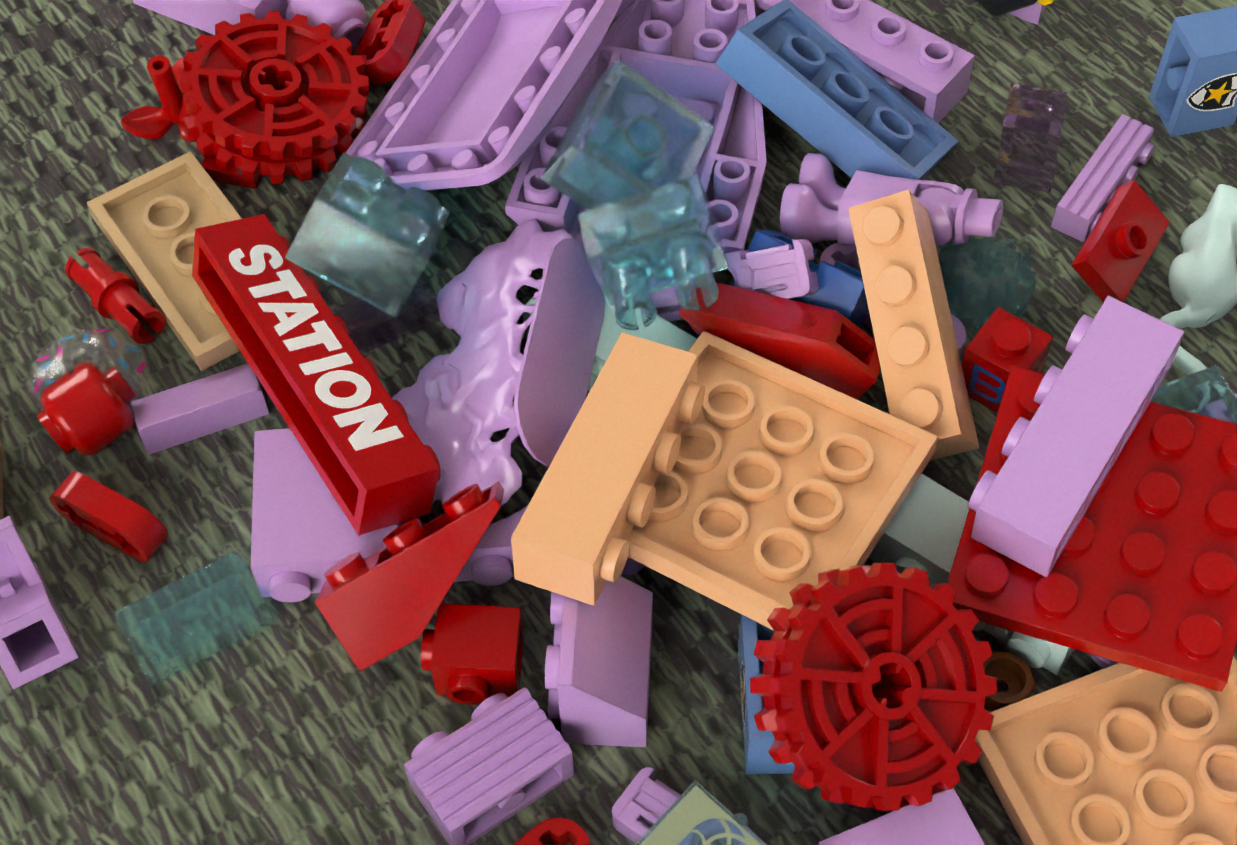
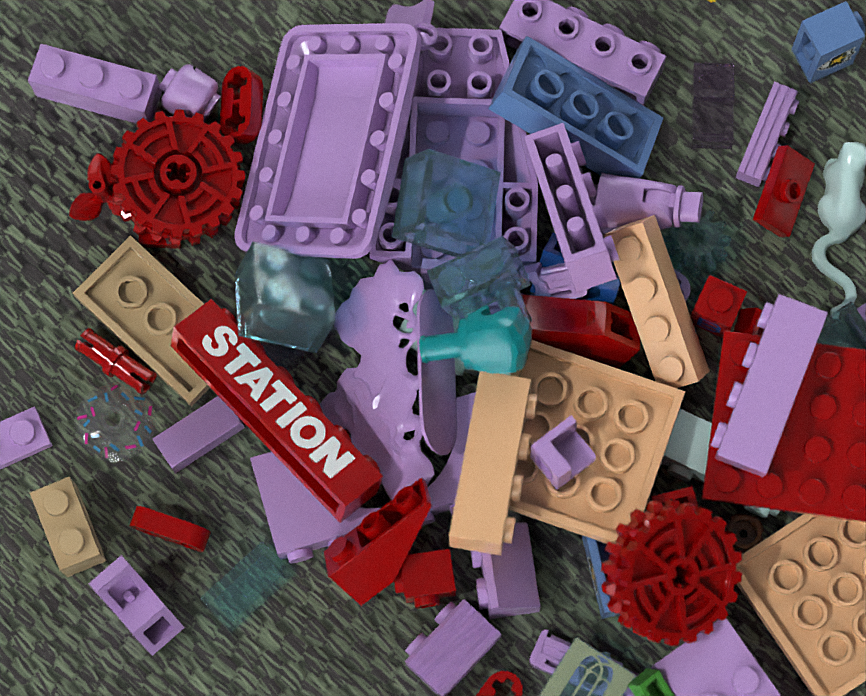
camera: 10 degrees left, 20 degrees up
(87, 409) = (131, 456): red head -> none
(635, 291) = (483, 341): none -> teal piece
(722, 472) = (562, 453): none -> lavender panel
(810, 168) = (570, 208): none -> lavender brick

